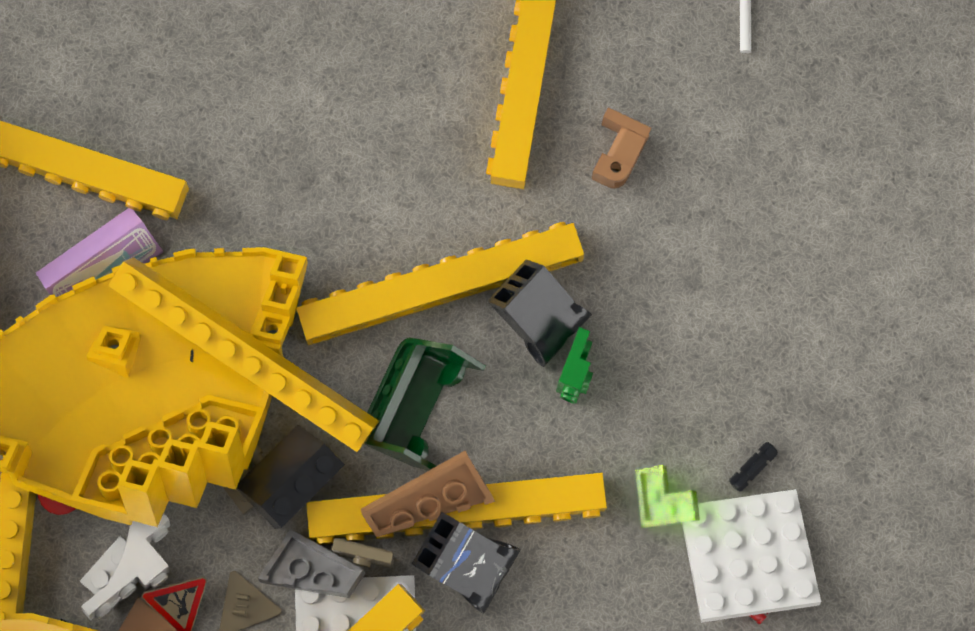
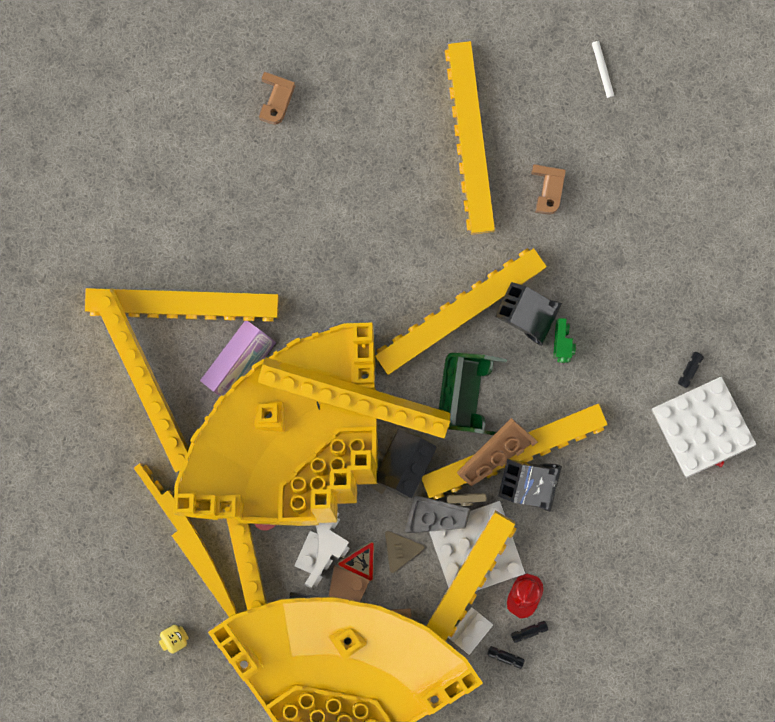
camera: 15 degrees left, 10 degrees up
(658, 505) = (638, 412): clear neon green plate -> none

